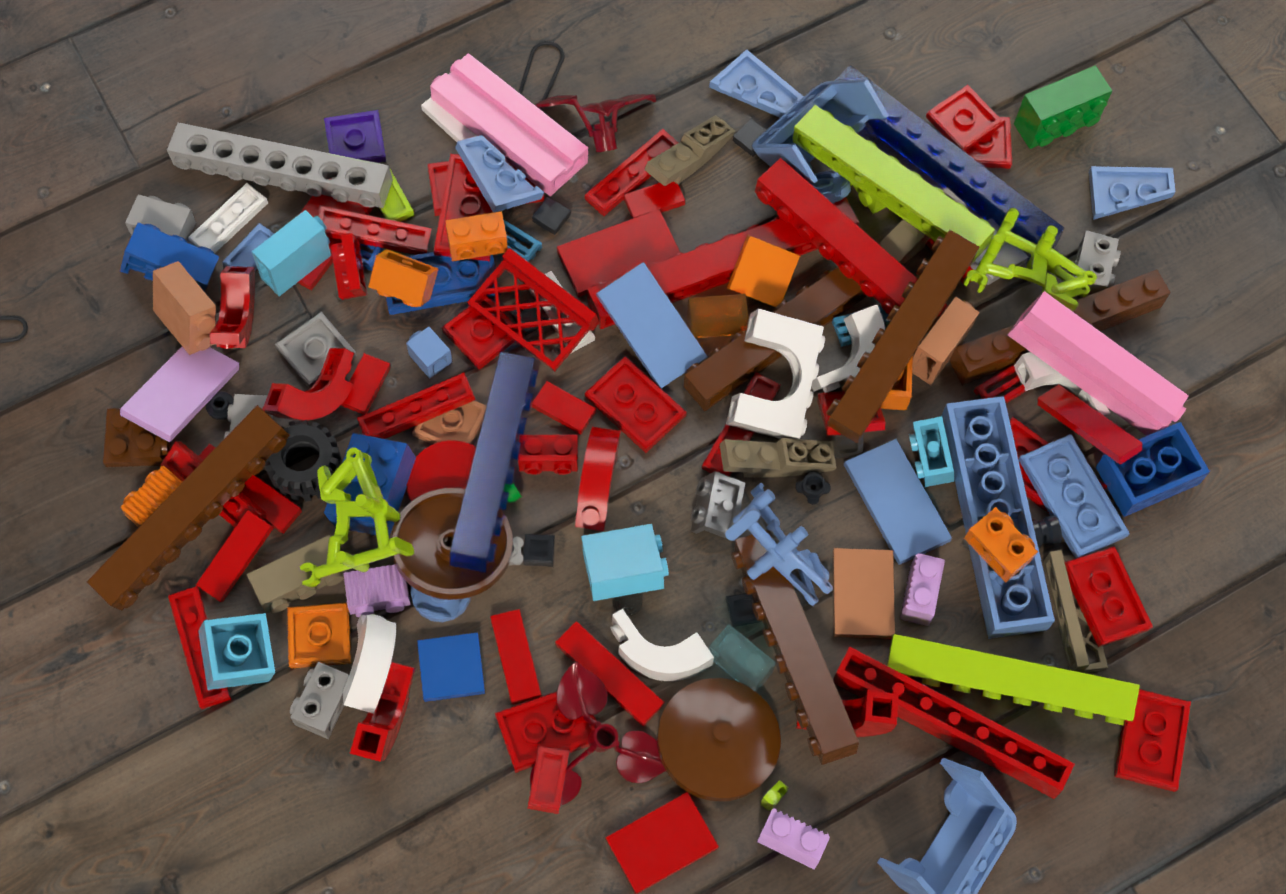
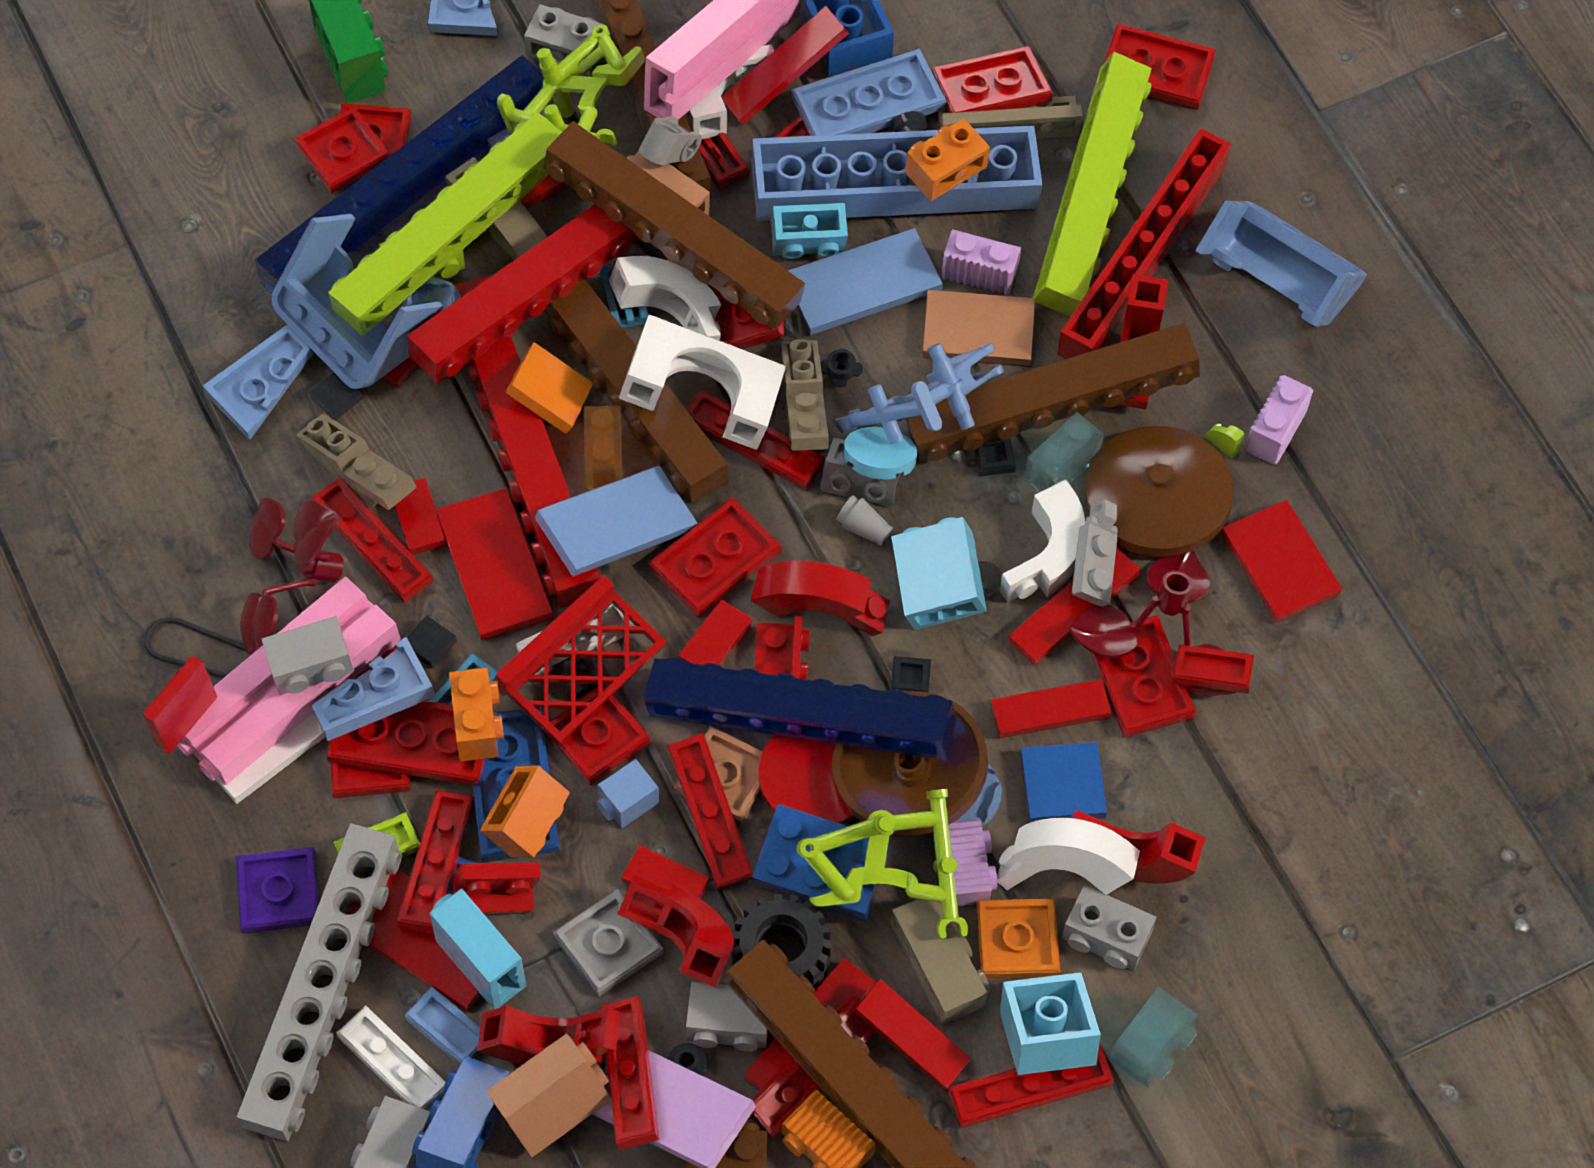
camera: 85 degrees left, 5 degrees down
(206, 363) = (631, 1078): none -> red tile
(231, 735) = (1154, 1037): none -> clear light blue brick
(466, 45) = (180, 705): none -> red tile
(511, 121) = (308, 656): none -> light grey brick
(644, 682) = (1096, 555): none -> light grey hinge
(672, 507) = (863, 521): none -> light grey cone
(720, 507) = (875, 456): none -> medium azure tile
(984, 328) = (669, 142): none -> light grey piece

